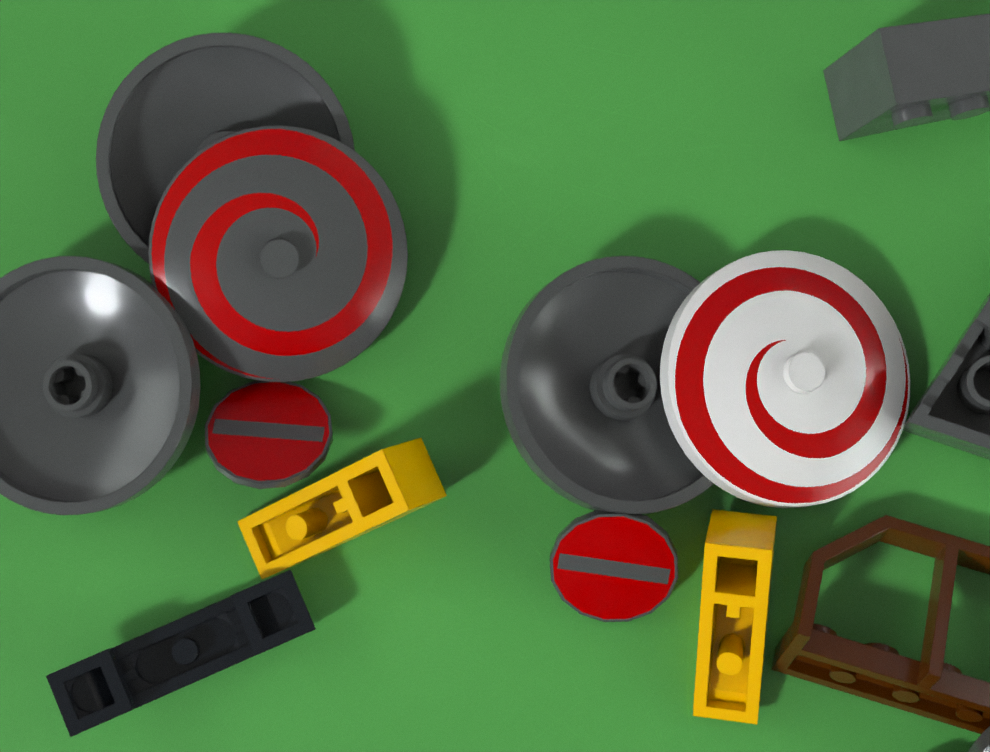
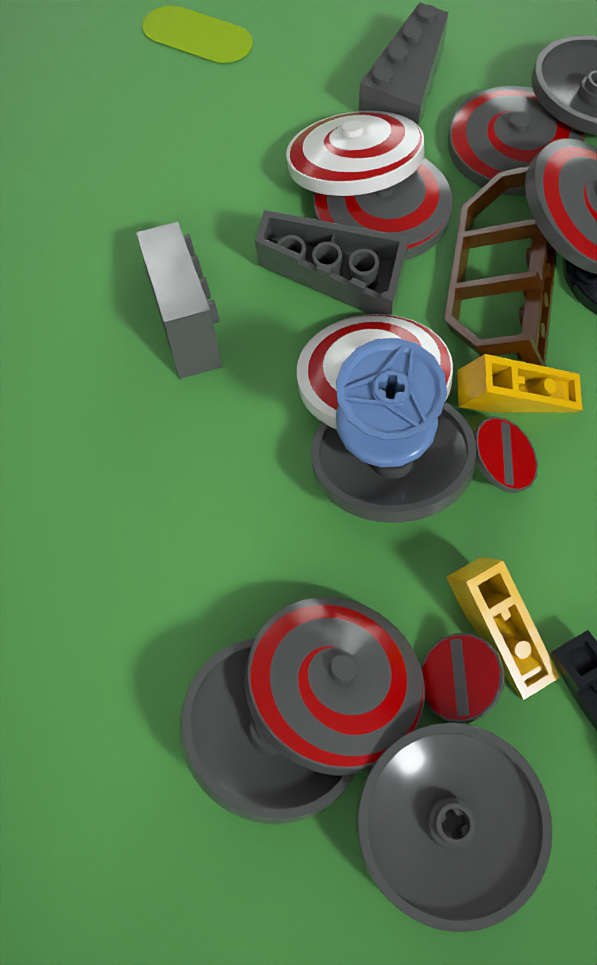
camera: 100 degrees left, 20 degrees down
(645, 329) = (389, 401): none -> medium blue piece

